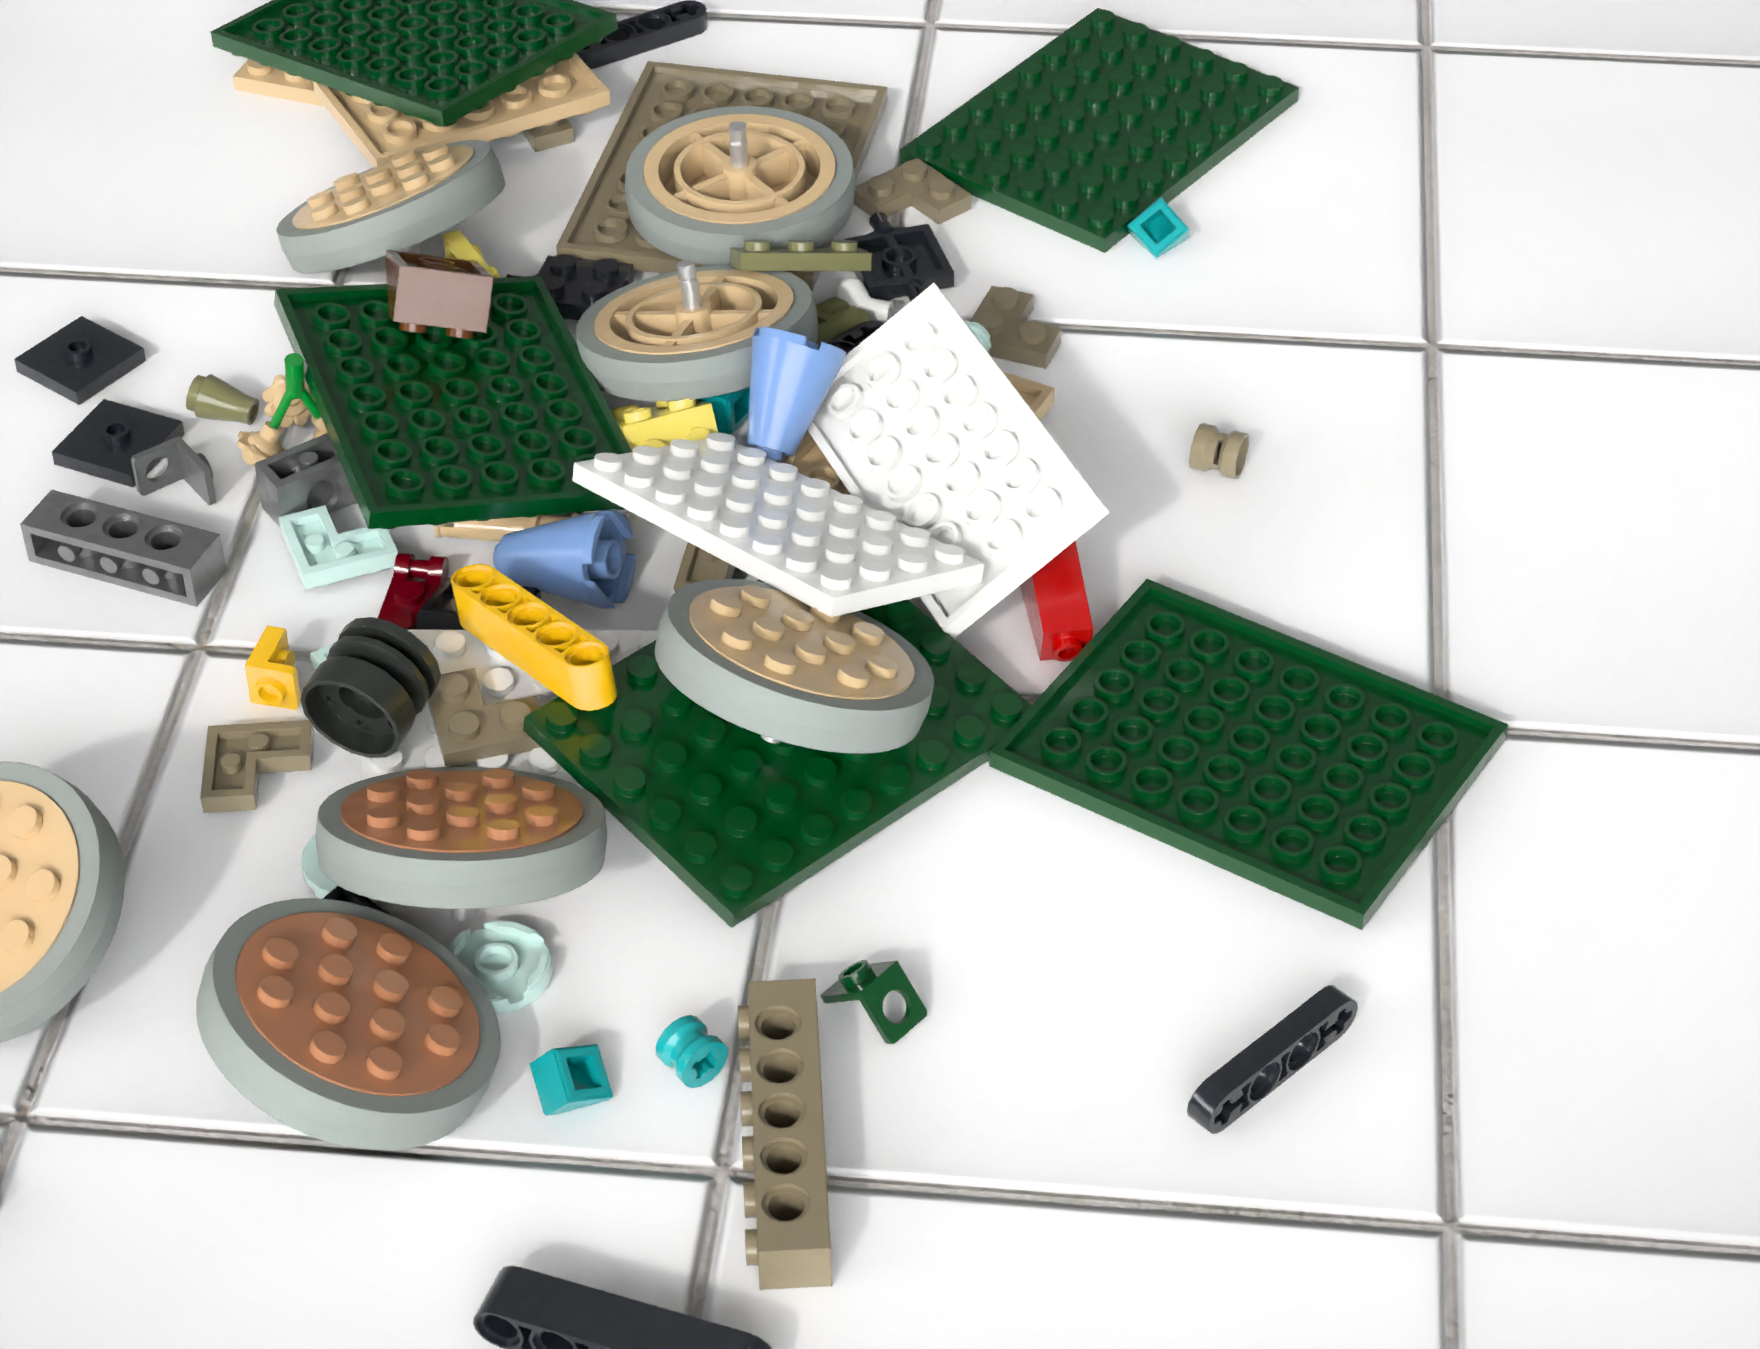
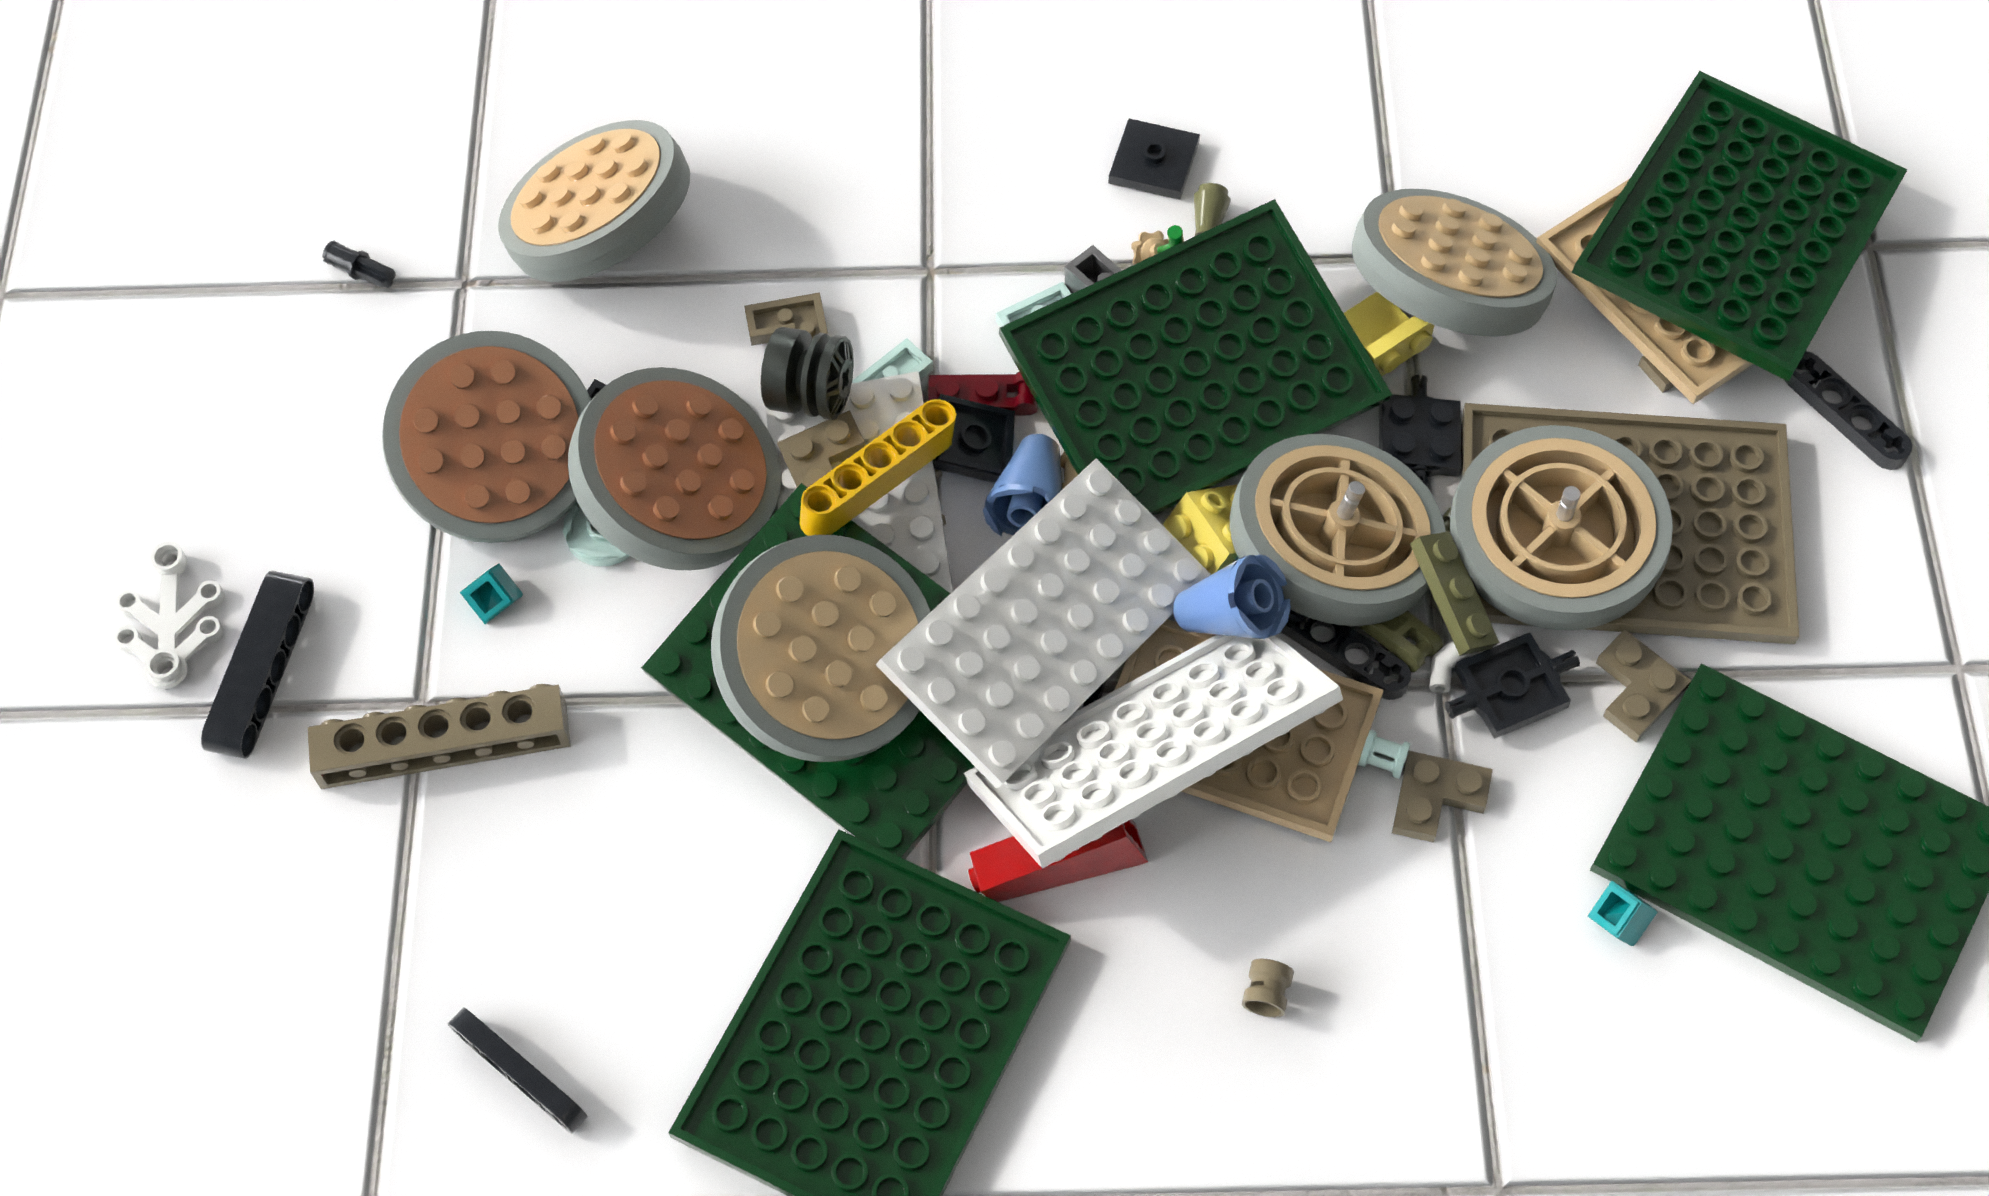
camera: 85 degrees right, 20 degrees up
(80, 360) = (1254, 107): black plate -> none
(124, 547) = (1017, 193): flat silver brick -> none
(182, 464) = (1120, 209): dark grey bracket -> none
(272, 671) = (888, 315): yellow bracket -> none
(437, 293) = (1308, 312): slope -> none
(691, 1051) = (512, 663): teal wheel -> none
(870, 985) = (576, 771): dark green bracket -> none

